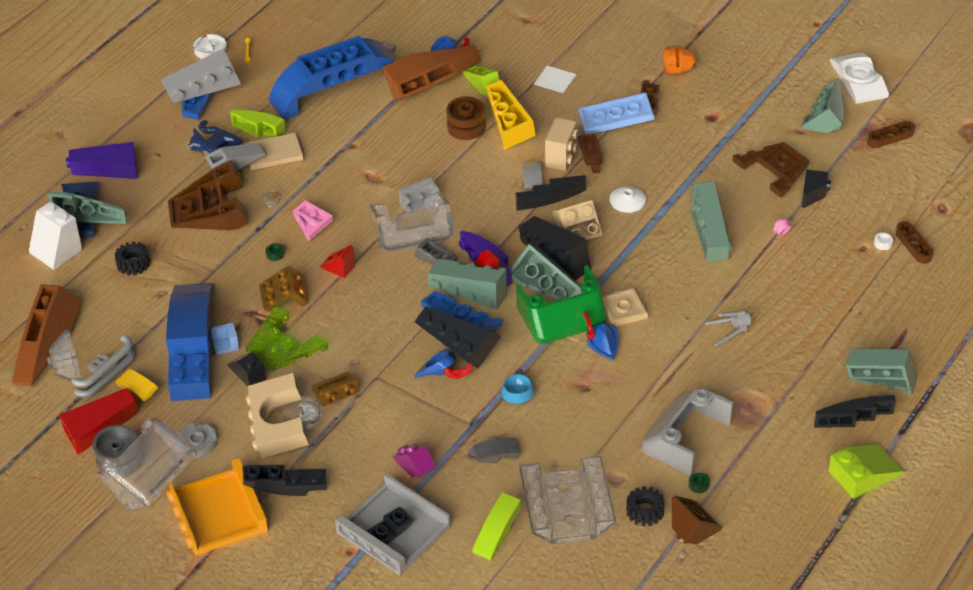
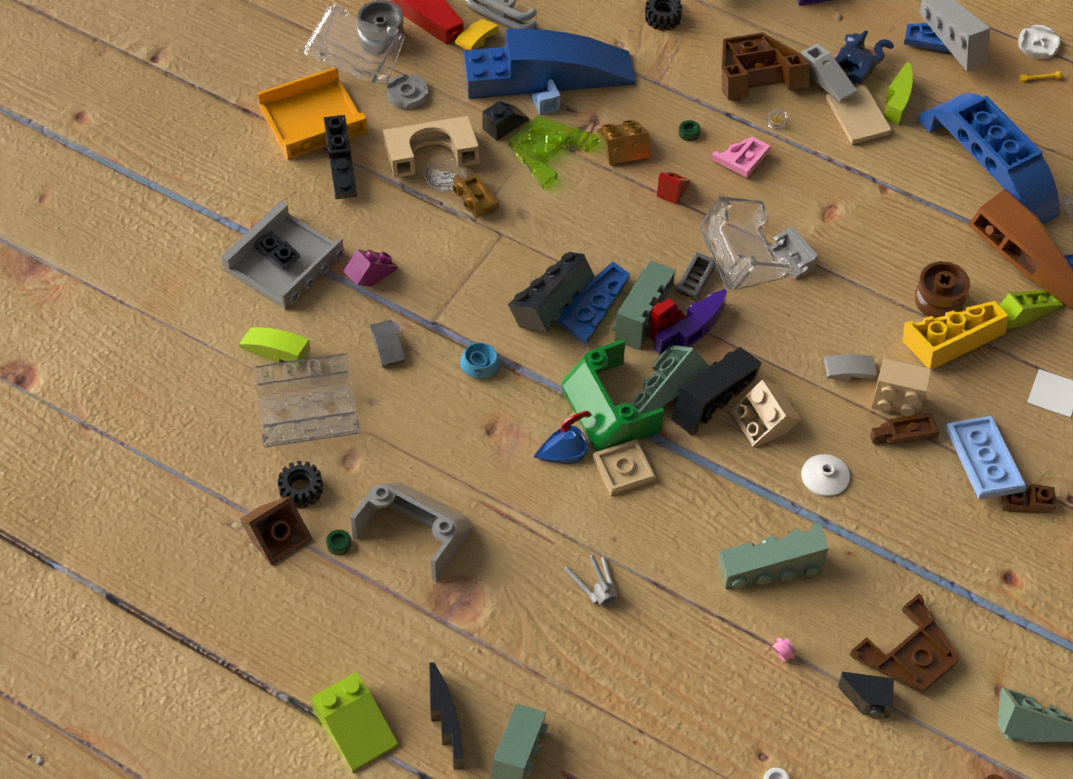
camera: 85 degrees right, 10 degrees up
(443, 364) = (511, 284): blue piece -> none
(551, 193) = (820, 389): black slope -> none

